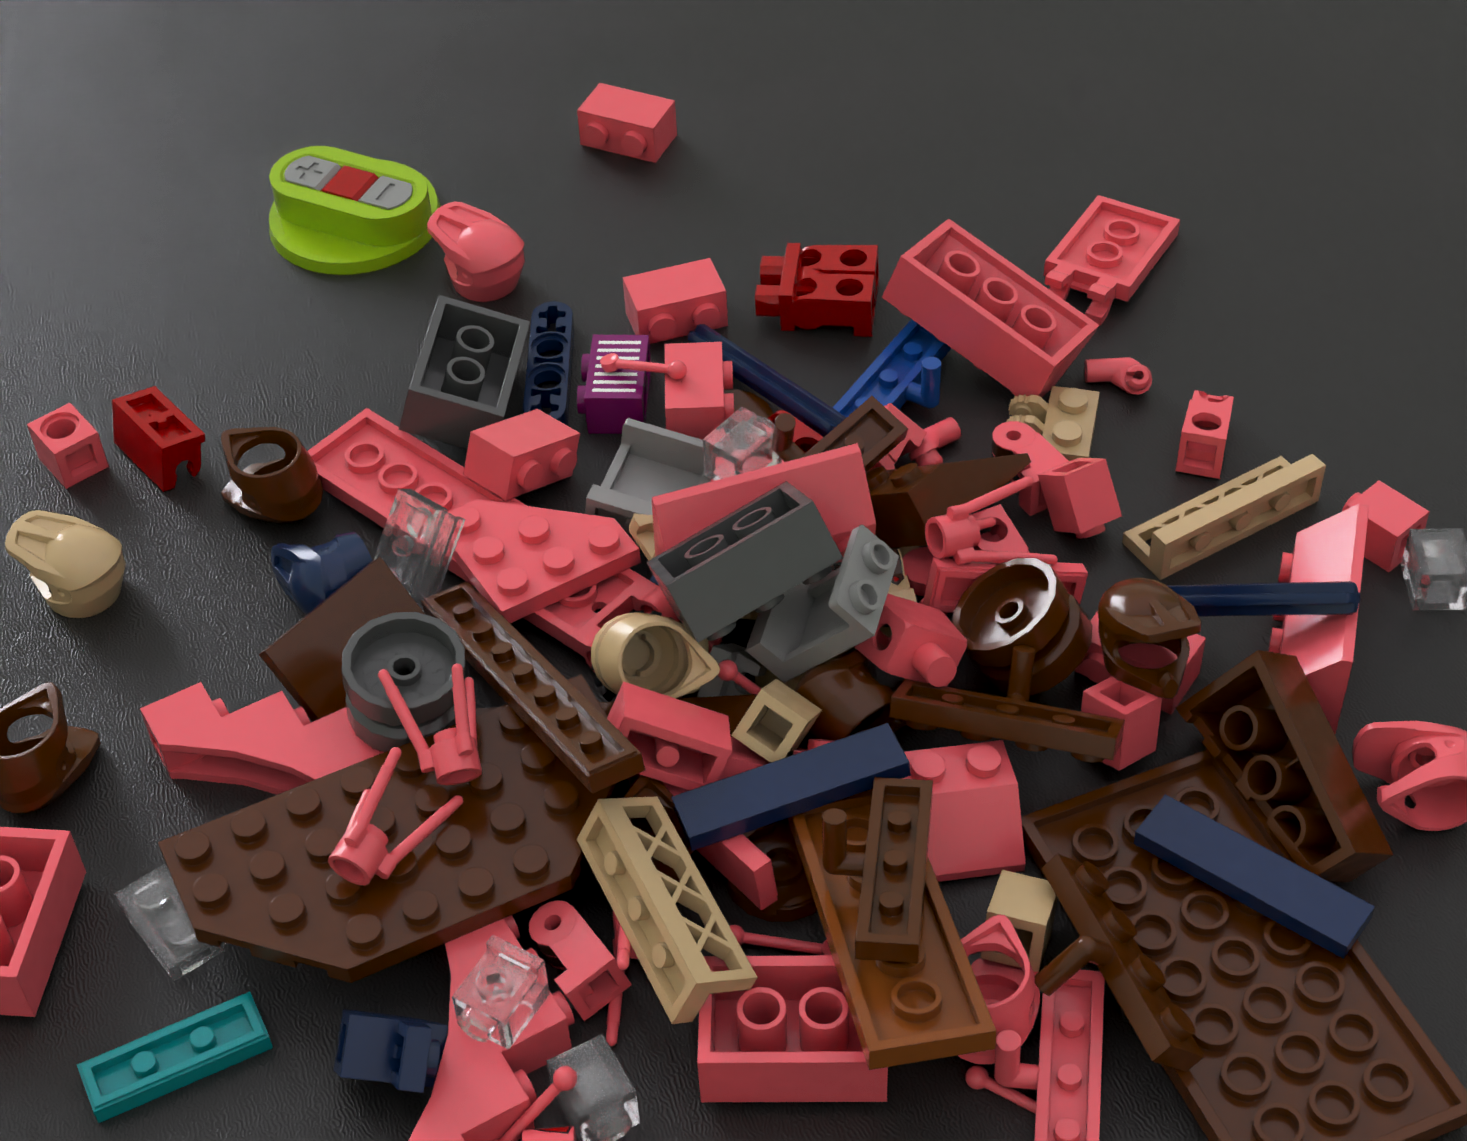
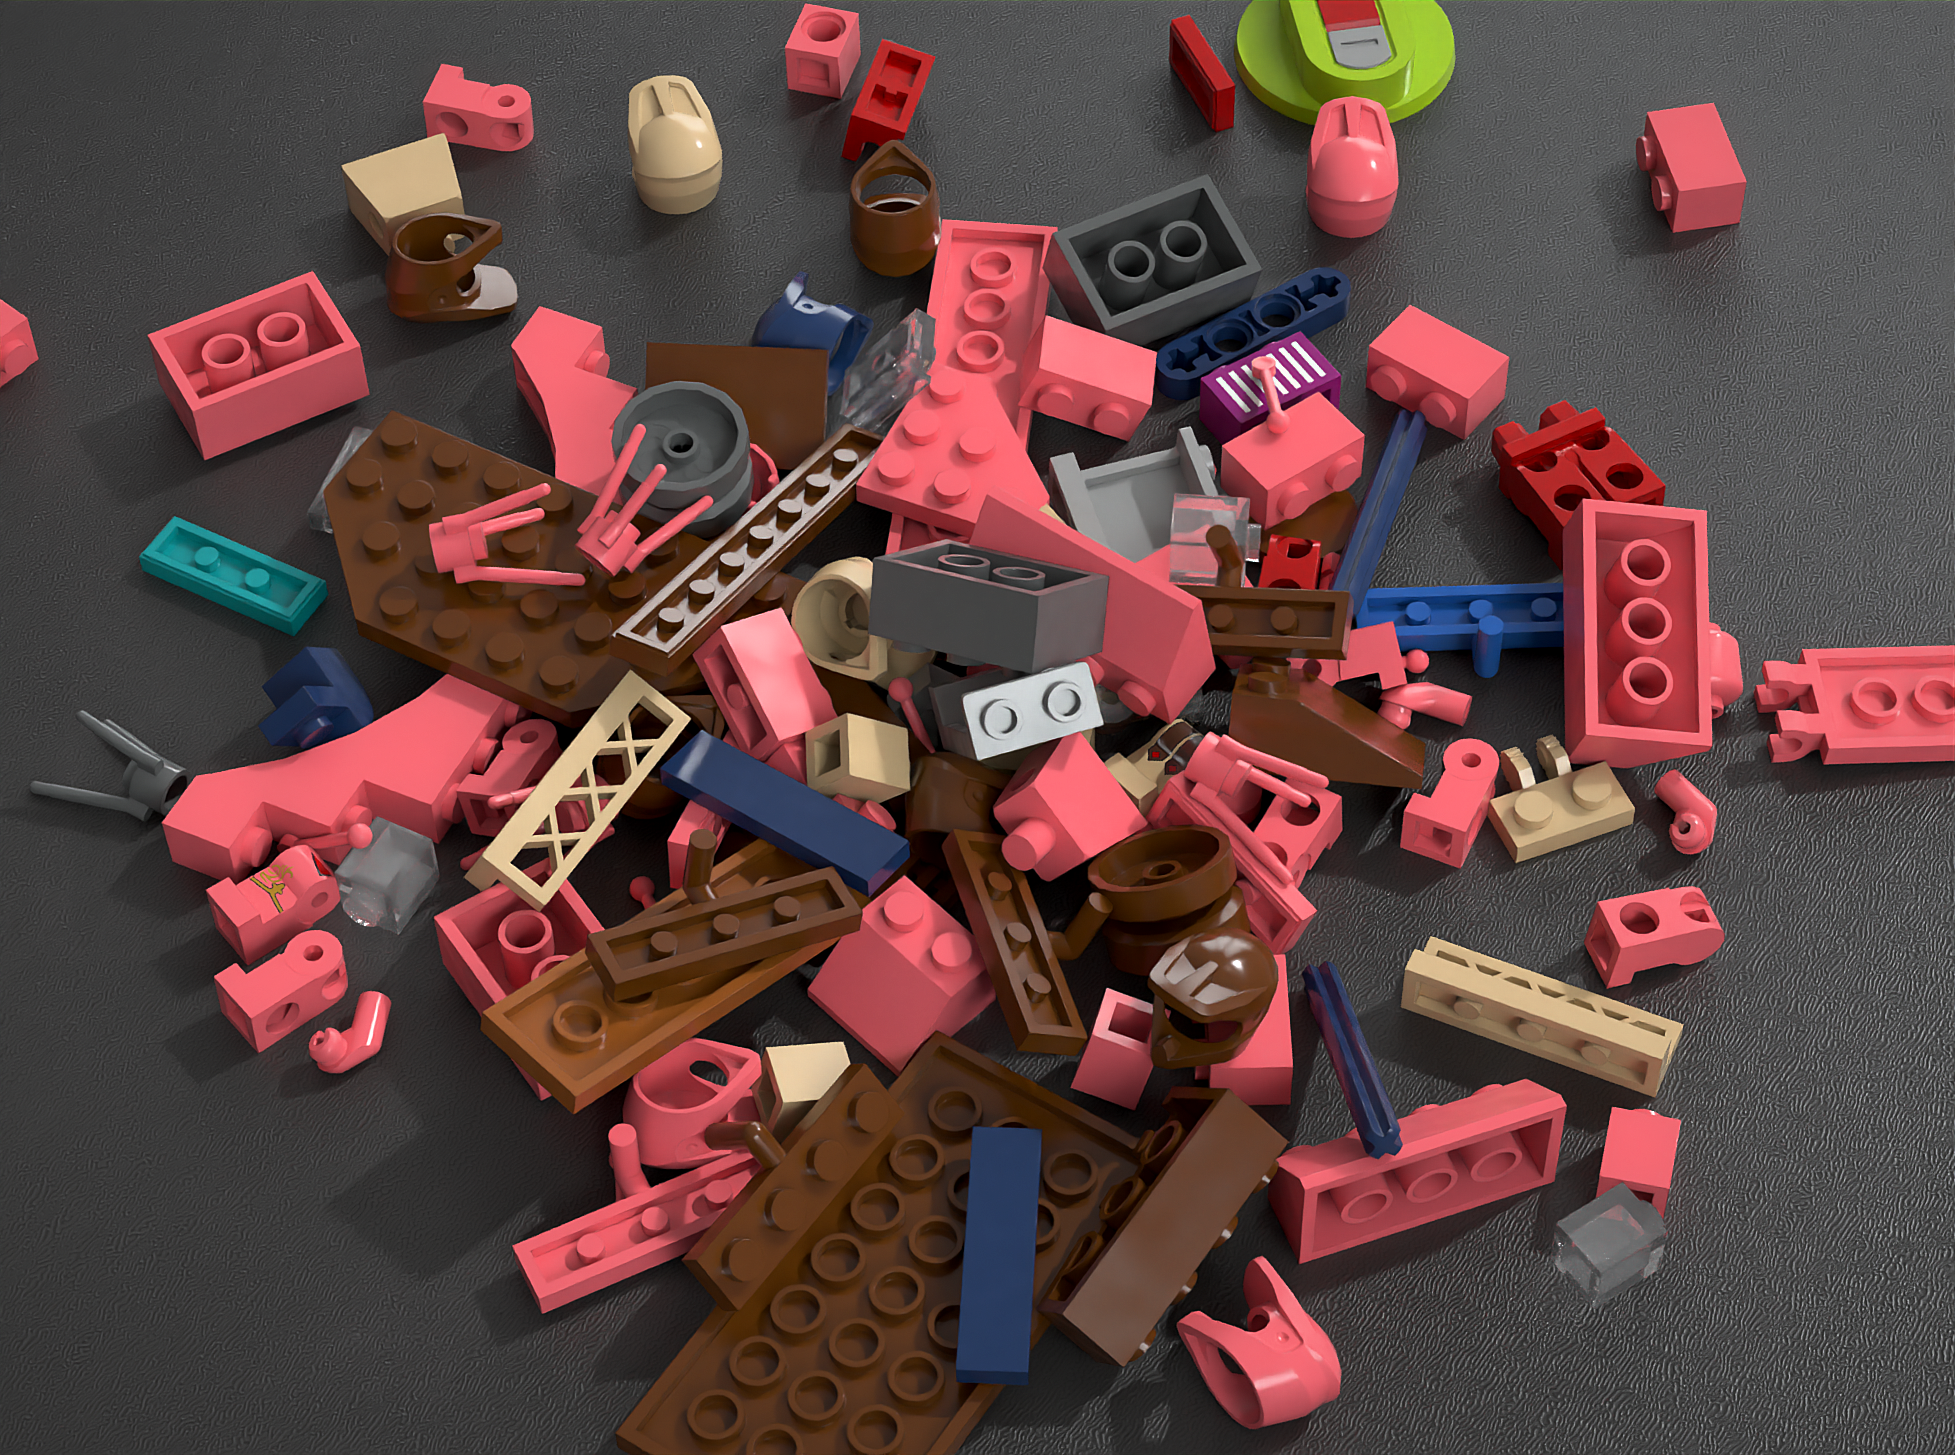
camera: 55 degrees right, 5 degrees up
(310, 279) = (1202, 73): none -> red tile
(501, 993) = (402, 738): clear brick -> none
(1080, 496) = (1426, 863): coral brick -> none

